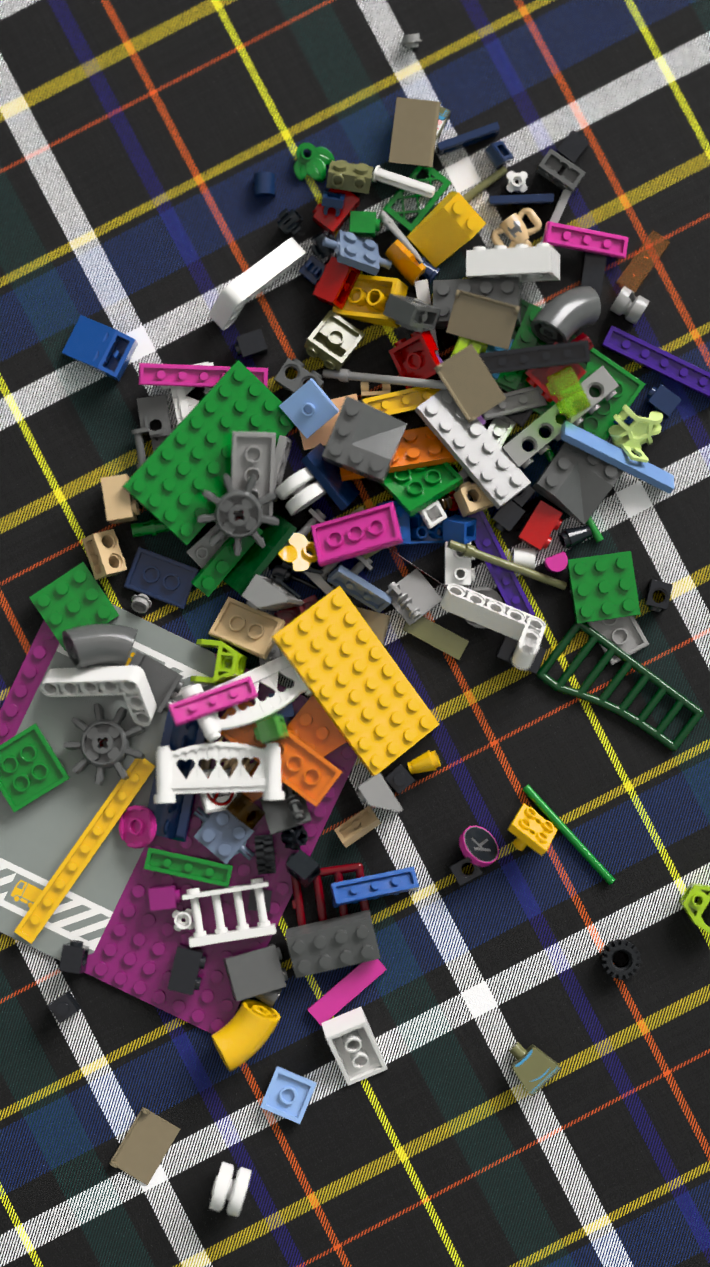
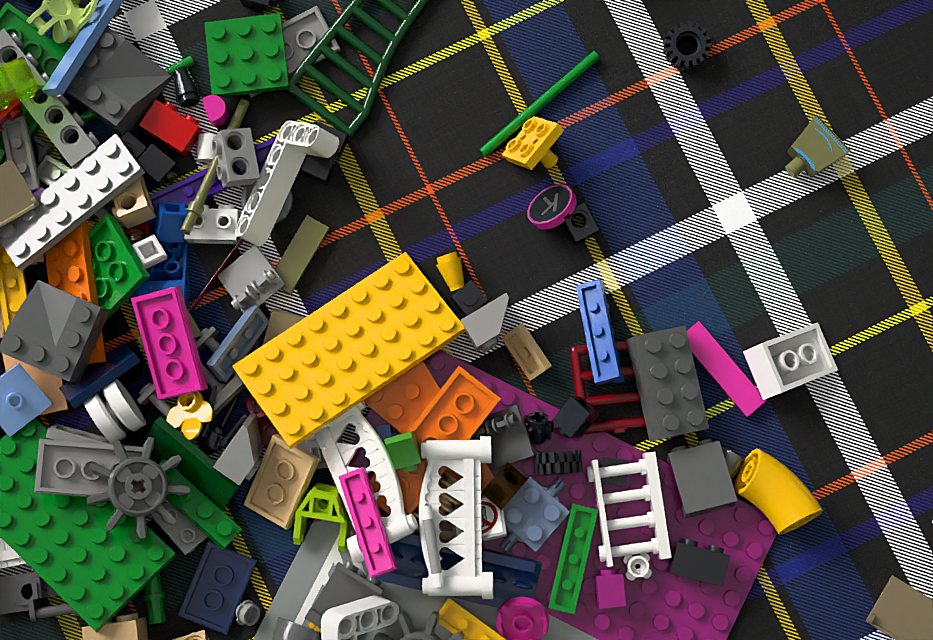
camera: 90 degrees left, 5 degrees down
(196, 753) = (432, 546): none -> light grey bar
(288, 1095) = (849, 441): light blue plate -> none
(514, 588) = (243, 157): none -> light grey brick

